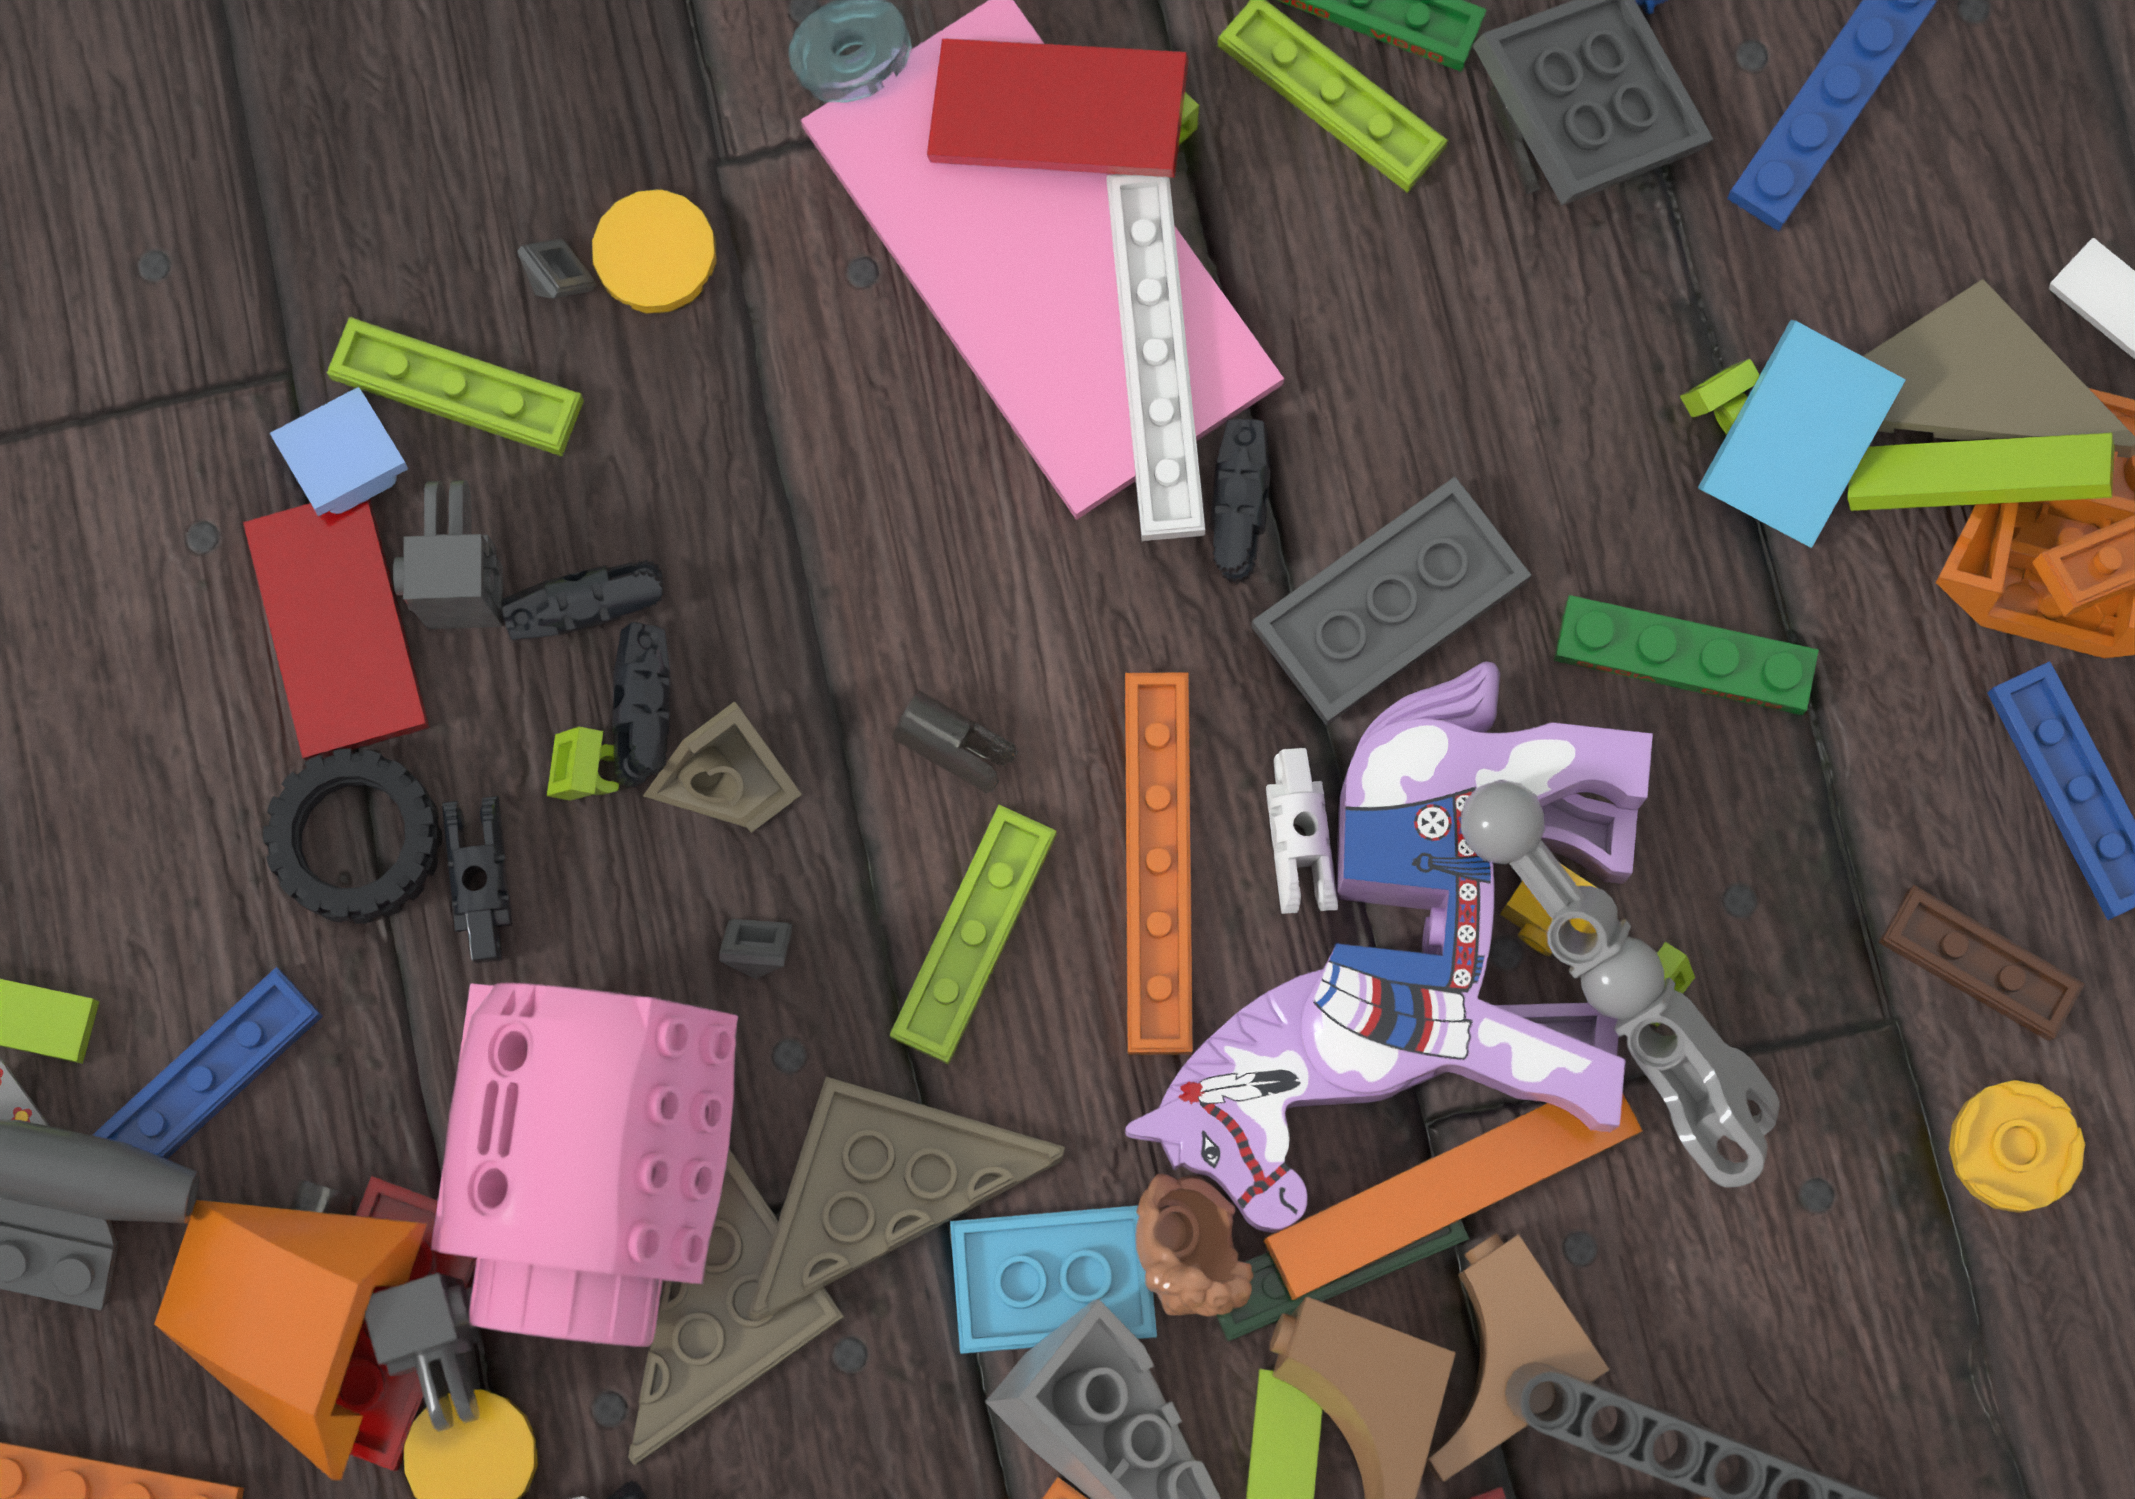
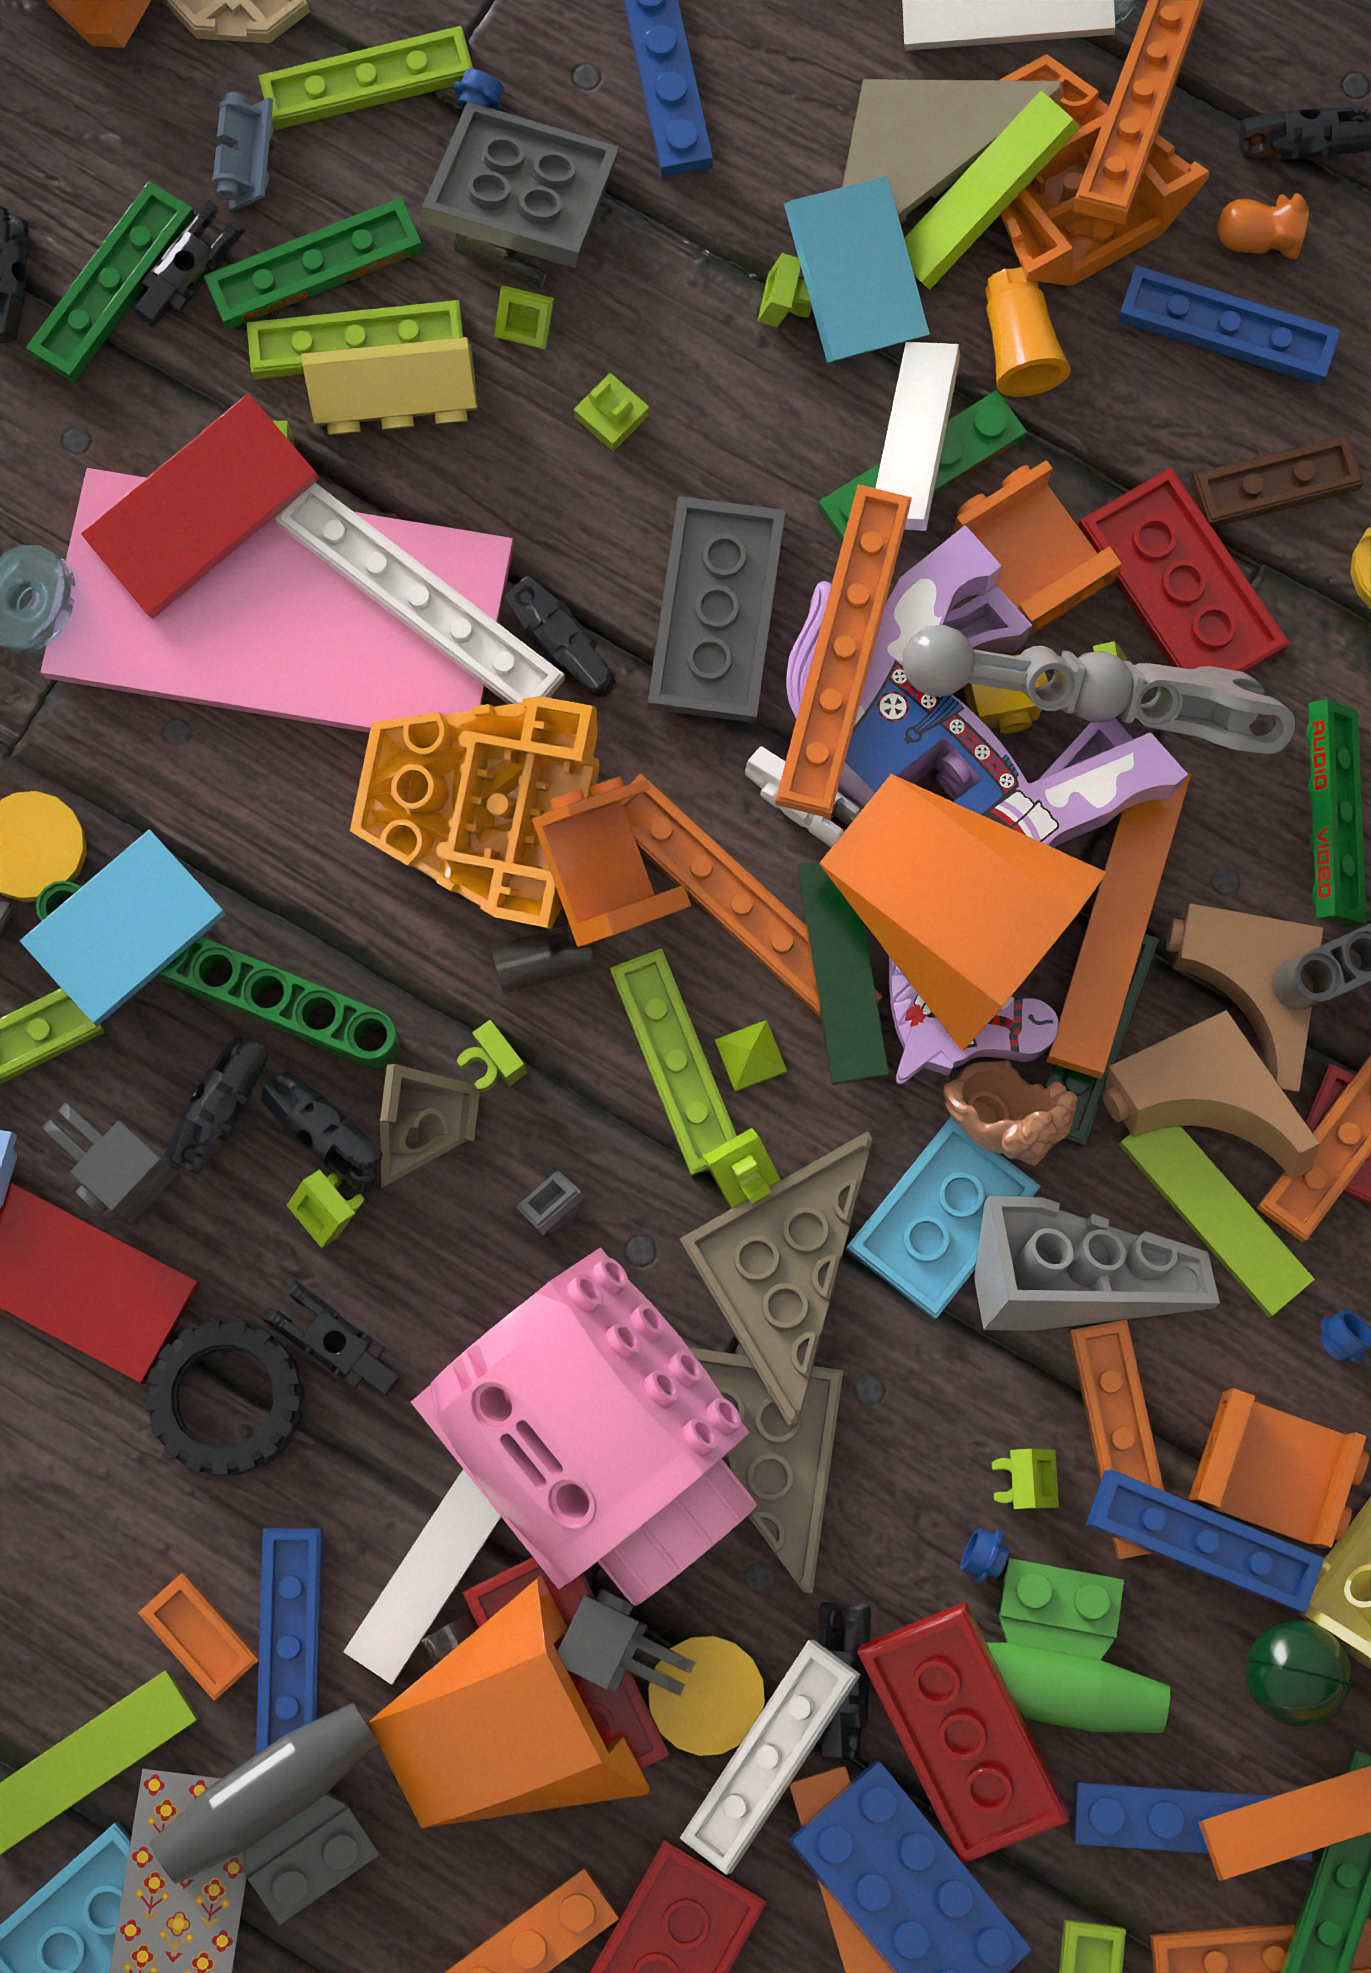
camera: 50 degrees left, 0 degrees up
(146, 1000) = (199, 1636): none -> orange tile
(345, 1138) = (424, 1580): none -> white tile
(648, 386) = (122, 927): none -> medium azure tile
(680, 471) = (246, 982): none -> green beam
(836, 782) = (496, 1054): none -> lime tile
(932, 1073) = (742, 1169): none -> lime tile
(1035, 572) = (463, 794): none -> light orange wedge
(1038, 990) = (750, 1056): none -> lime slope
(1071, 714) = (600, 863): none -> orange panel
(1178, 996) = (842, 980): none -> dark green tile
(1313, 158) = (391, 384): none -> light yellow slope
(1316, 1030) = (955, 899): none -> orange wedge
(1439, 736) = (843, 651): none -> orange tile
(1477, 354) = (611, 412): none -> lime tile
(1485, 205) = (523, 317): none -> lime slope
(1703, 620) = (919, 426): none -> white tile
(1708, 812) = (1039, 545): none -> orange panel
(1729, 1289) = (1336, 813): none -> green plate
(1810, 964) = (1183, 579): none -> red tile
(1886, 626) = (1023, 336): none -> light orange plant

